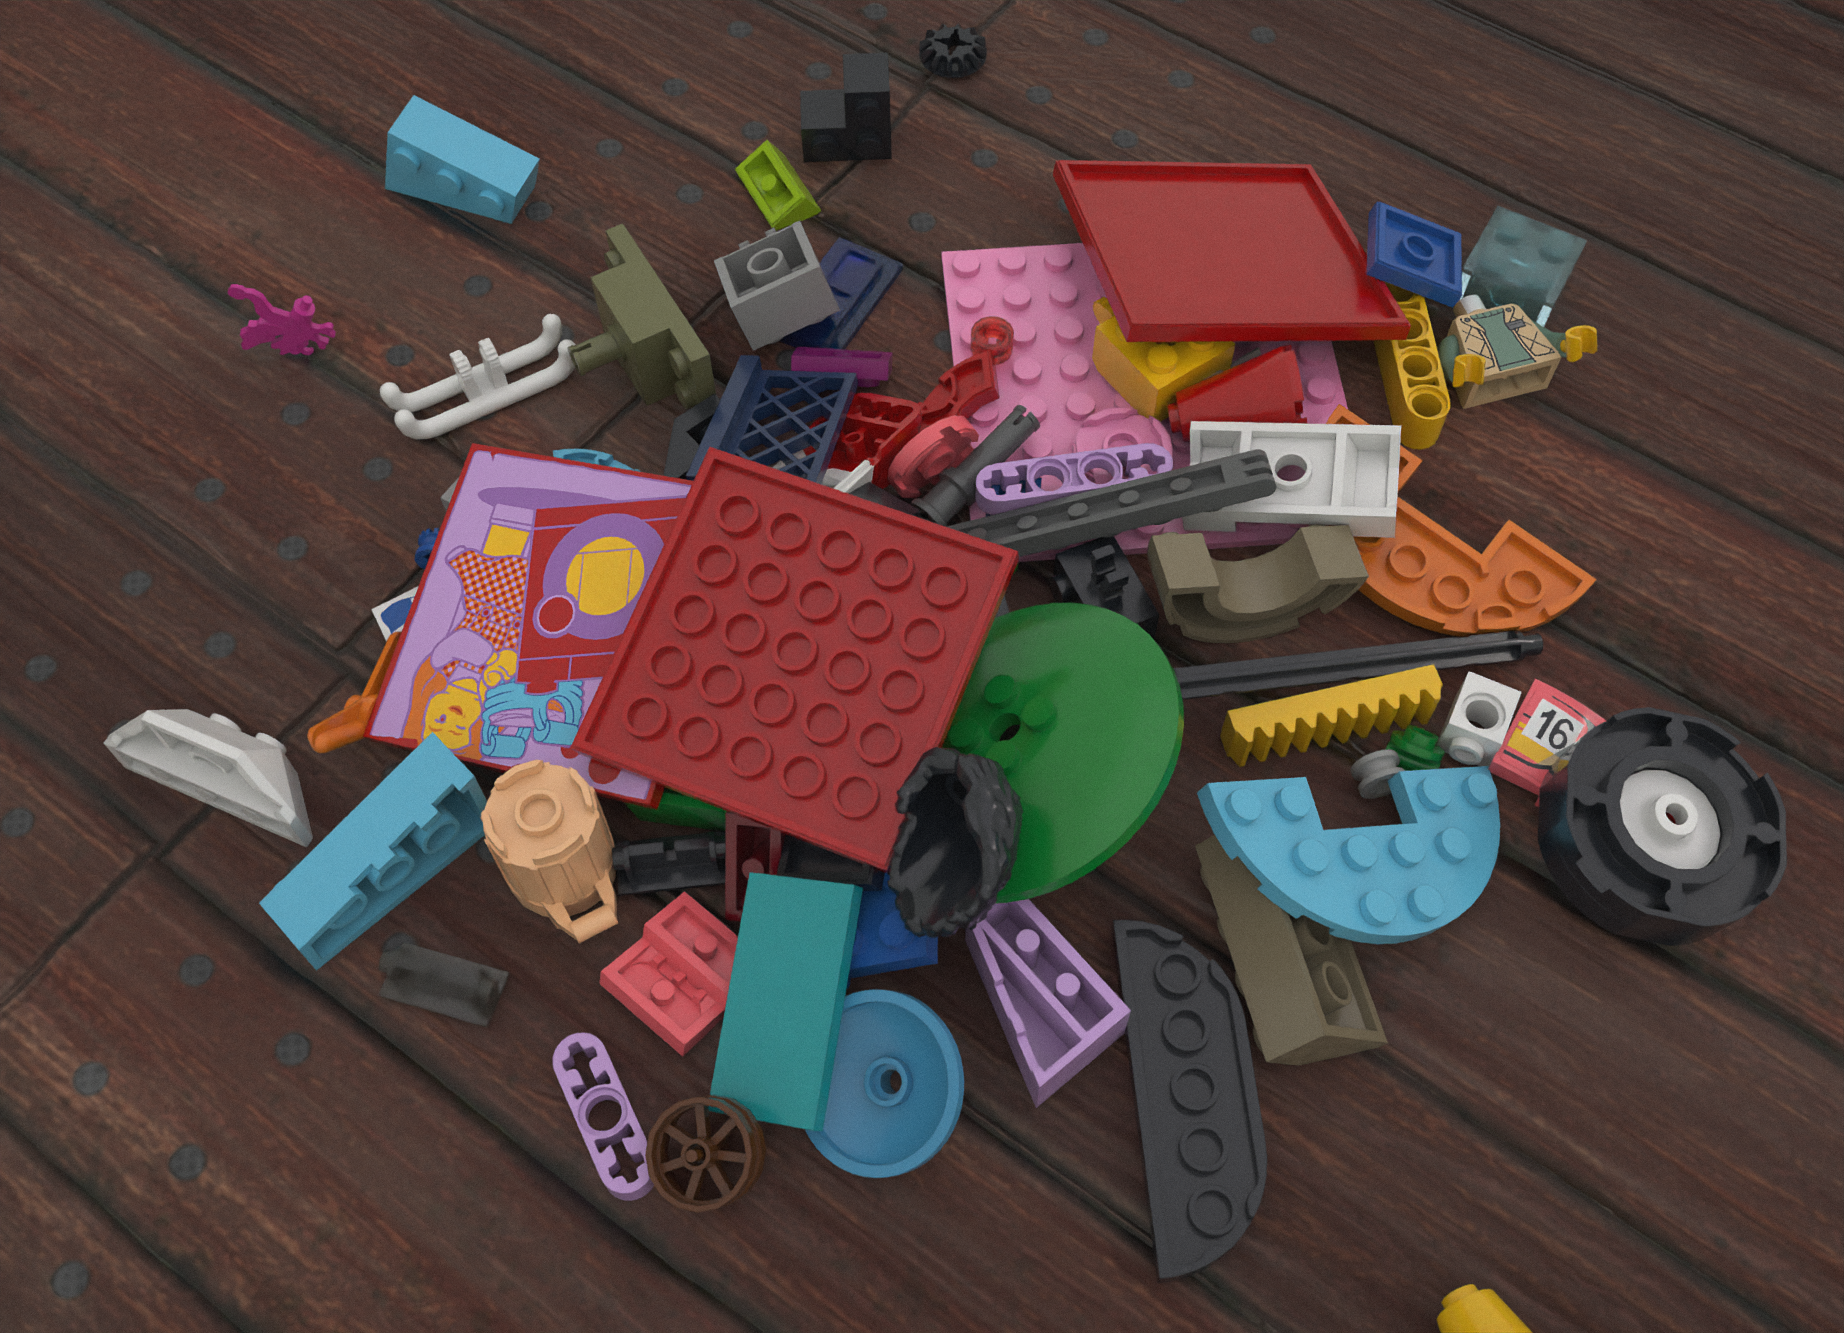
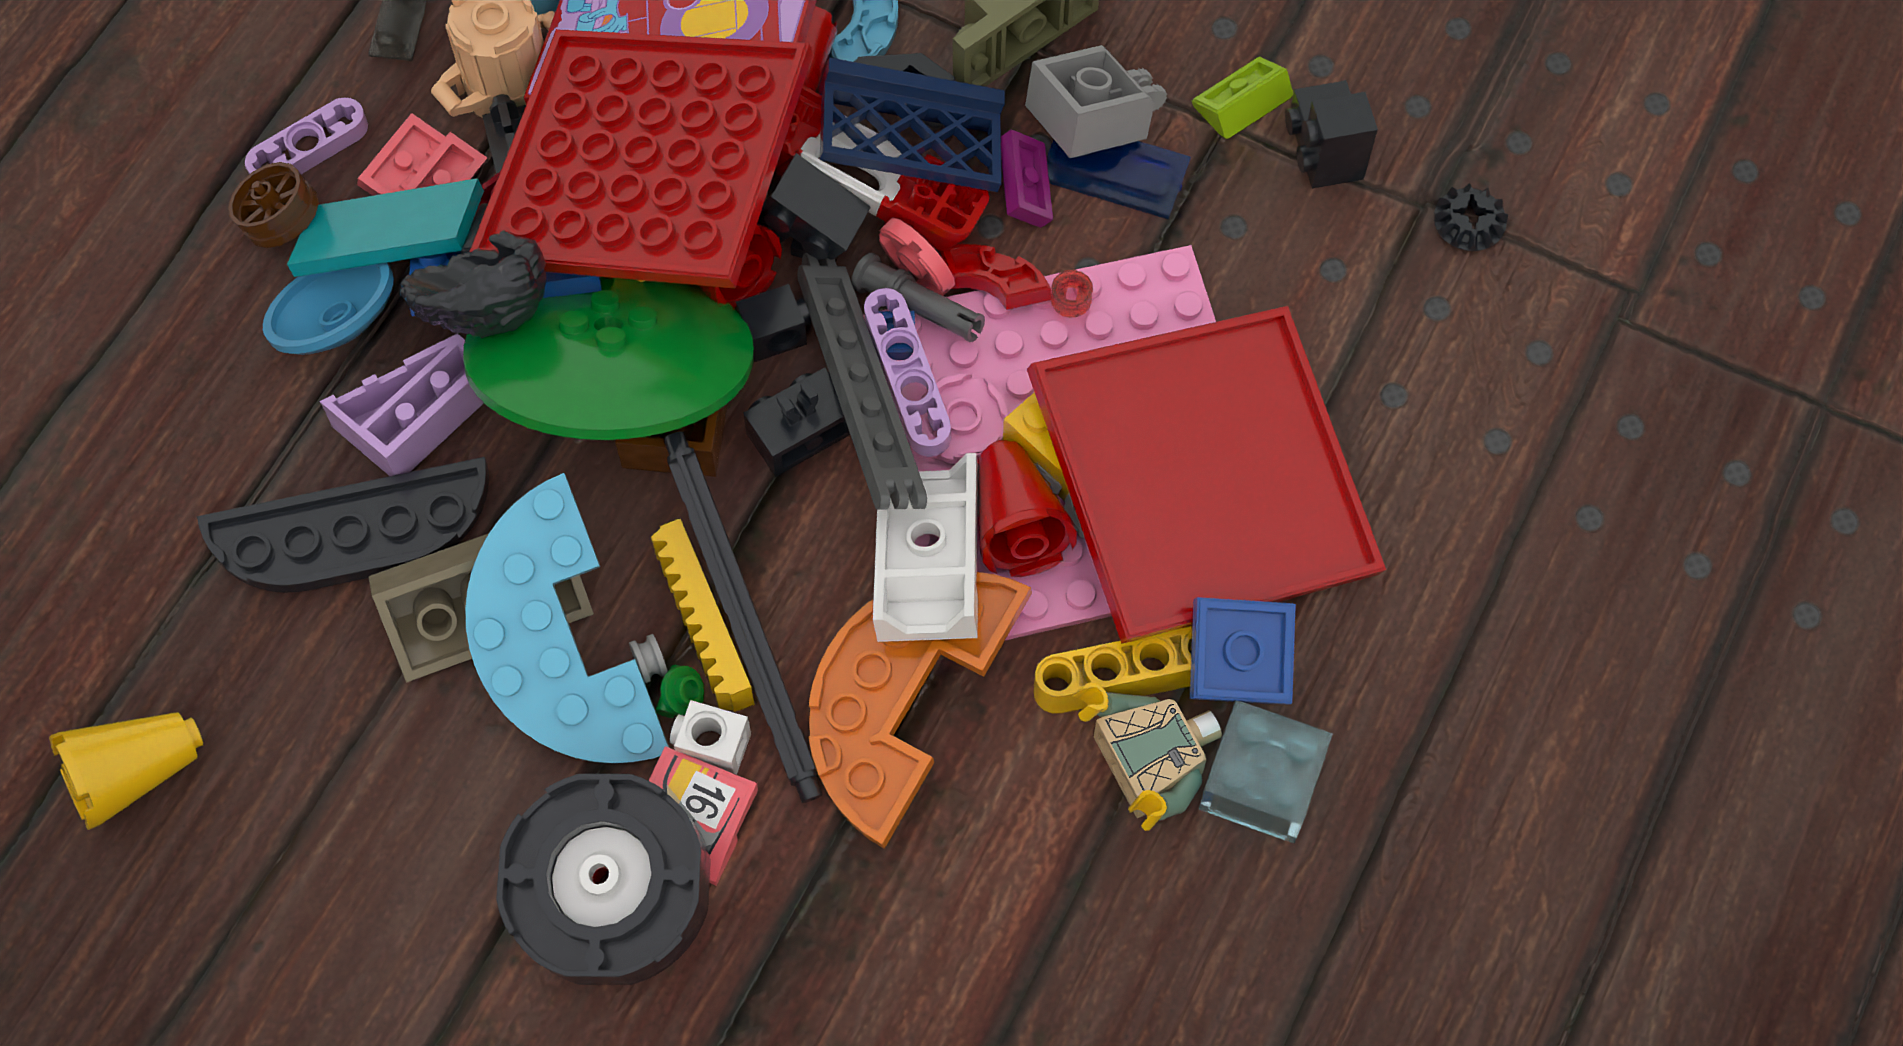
camera: 80 degrees right, 5 degrees up
(1255, 595) = (807, 513): dark tan brick -> none

